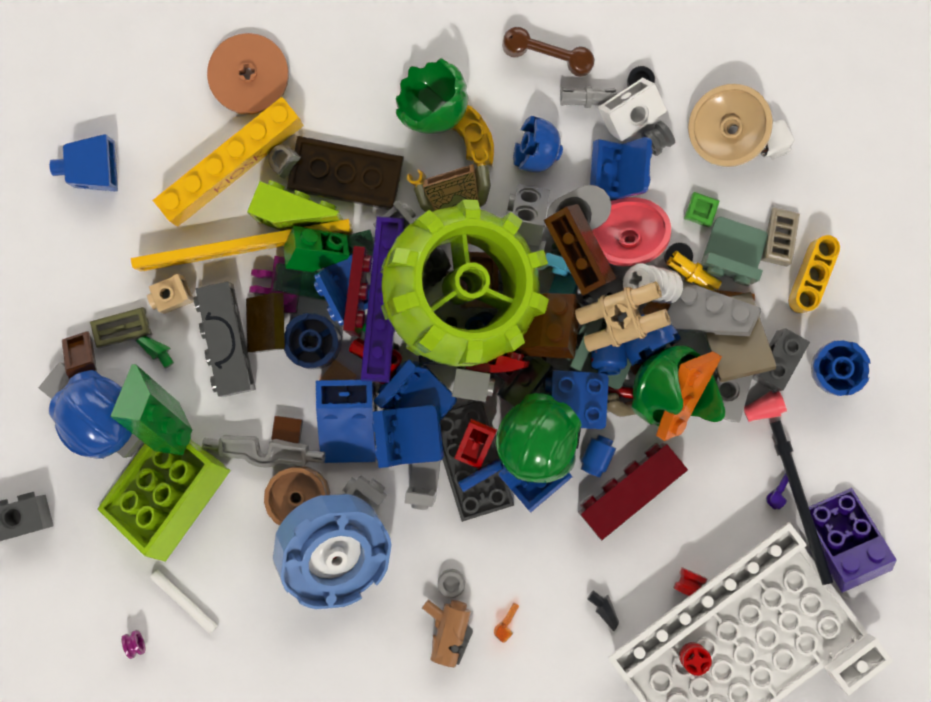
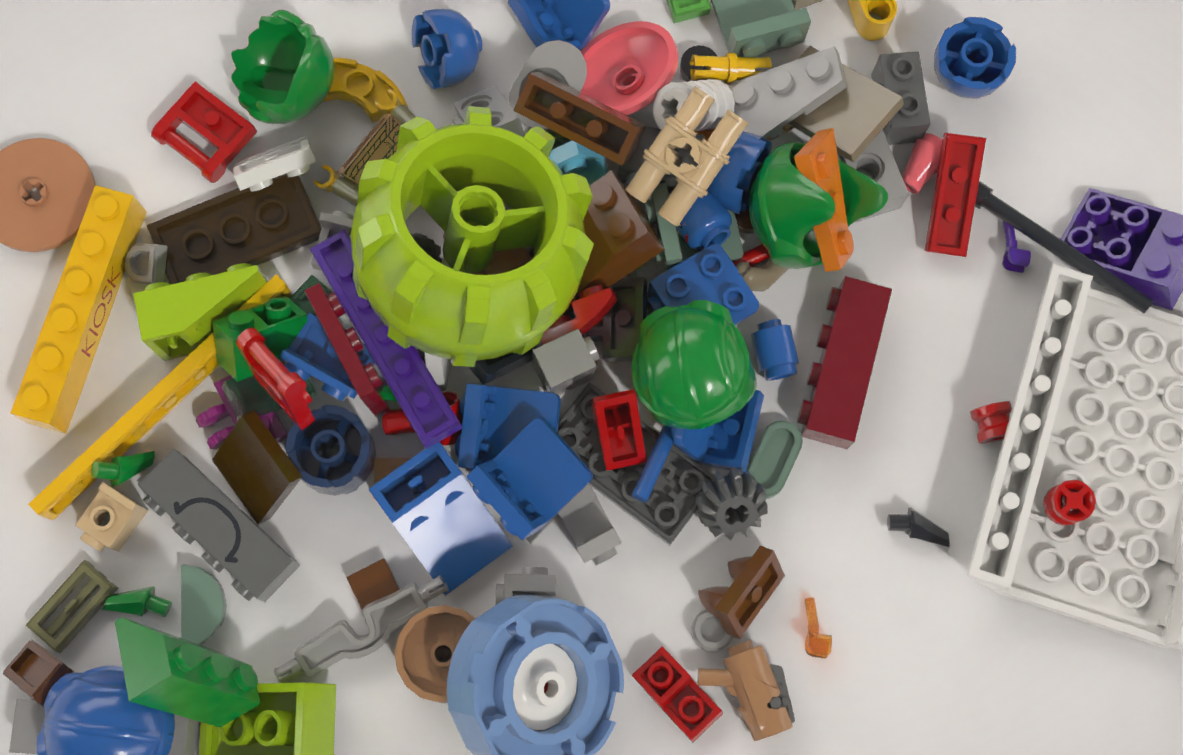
camera: 40 degrees left, 10 degrees down
(188, 376) = (201, 604): none -> sand green tile
(194, 271) = (122, 467): none -> green bar
(306, 280) = (275, 378): none -> red plate
(374, 98) = (212, 122): none -> red plate
(392, 149) = (259, 169): none -> white plate
(407, 604) = (677, 694): none -> red slope
(492, 575) = (753, 585): none -> reddish brown tile
(509, 525) = (731, 503): none -> dark grey gear
(552, 515) = (775, 456): none -> sand green tile
(768, 439) = (955, 194): none -> red tile

